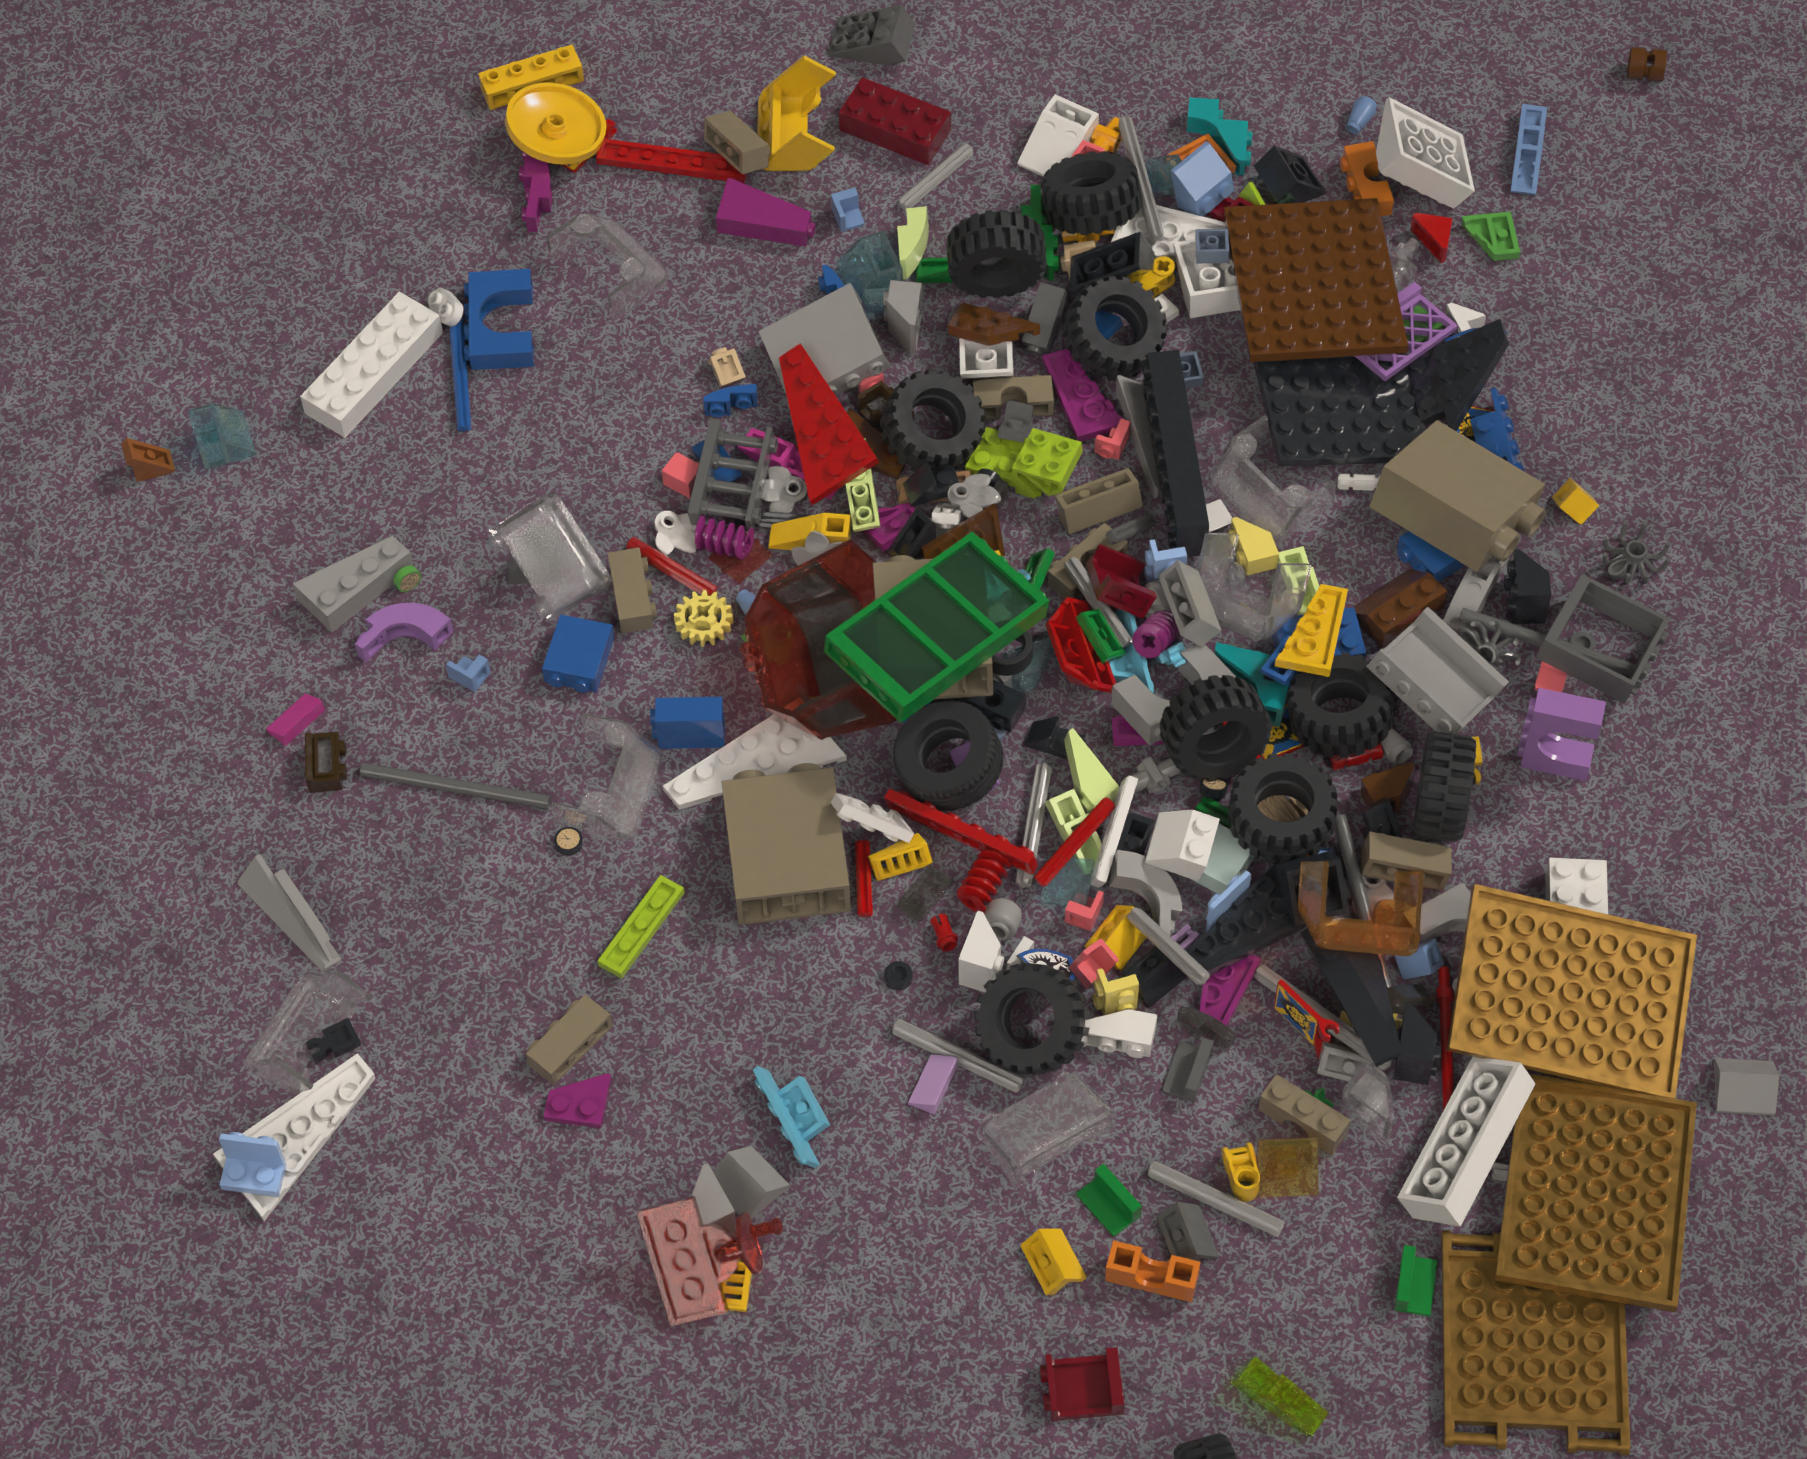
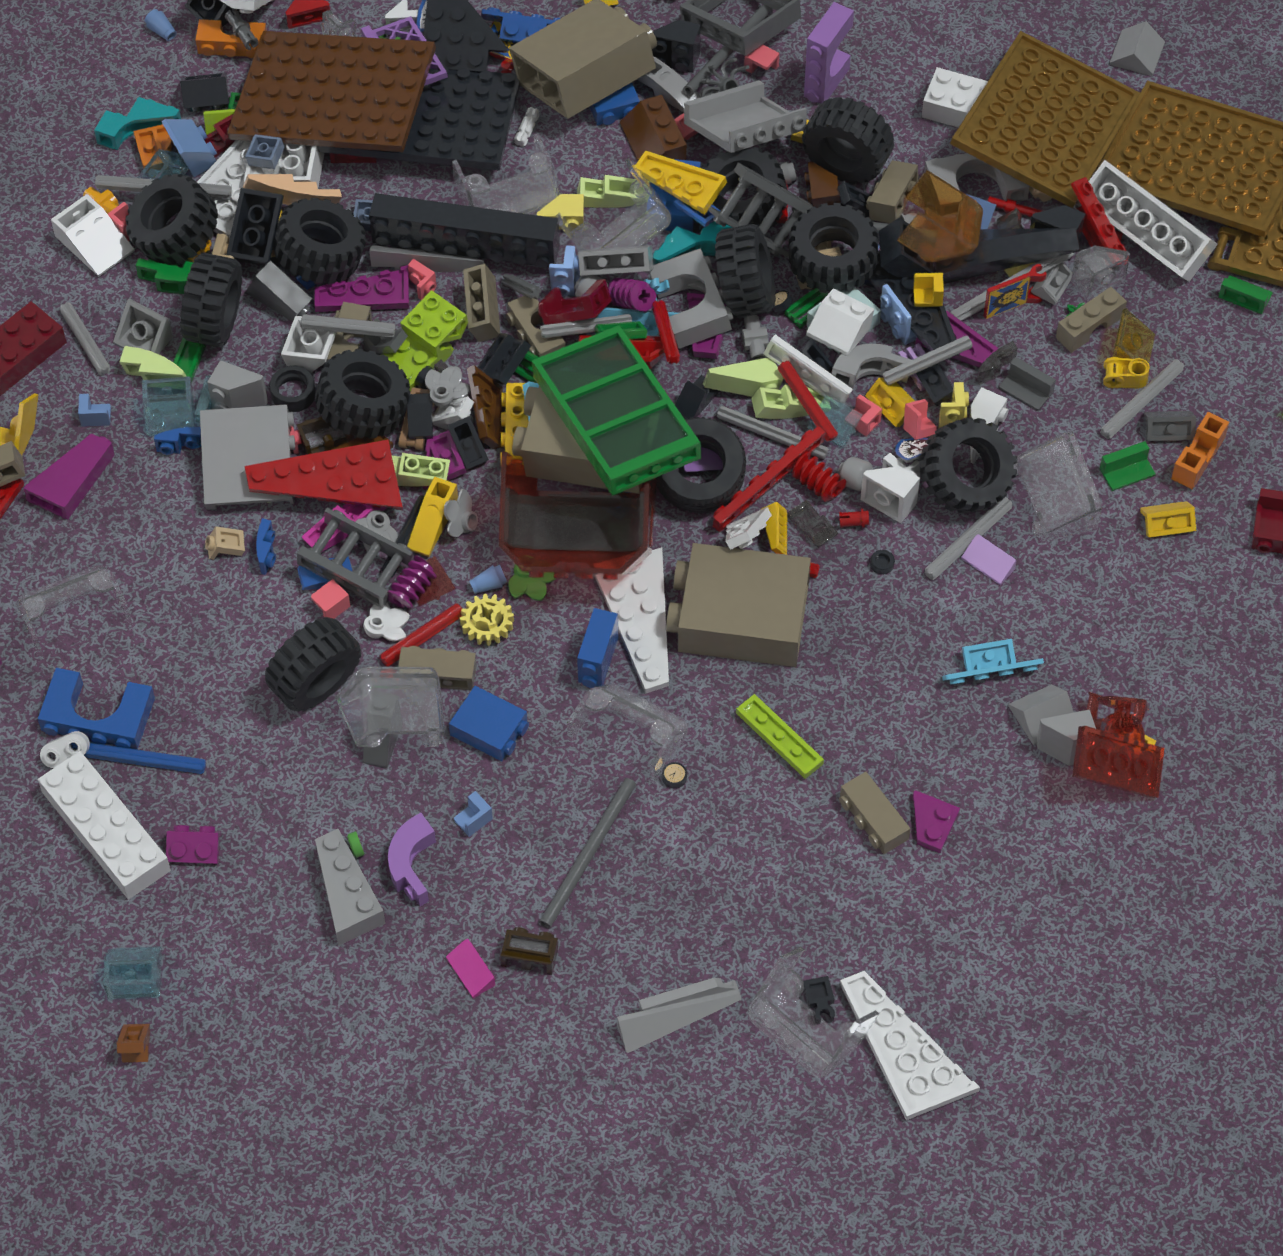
camera: 75 degrees left, 0 degrees up
(252, 1164) = (936, 1080): light blue bracket -> none
(373, 444) = (193, 845): none -> magenta bracket
(581, 469) = (313, 664): none -> black tyre
(934, 351) = (292, 373): none -> black tyre
(952, 212) = (143, 328): none -> light grey slope
(988, 326) = (274, 332): reddish brown wing -> none
(1005, 380) = (348, 325): none -> light grey axle
(1030, 539) = (503, 357): none -> black slope
(1106, 674) = (666, 332): none -> red axle
(1170, 279) = (292, 191): none -> light nougat slope
(1265, 925) = (928, 289): none -> yellow panel
(1322, 712) = (765, 188): none -> dark grey fence
(1369, 179) = (241, 29): none -> dark grey pin
(1438, 1083) = (1096, 224): none -> red bracket

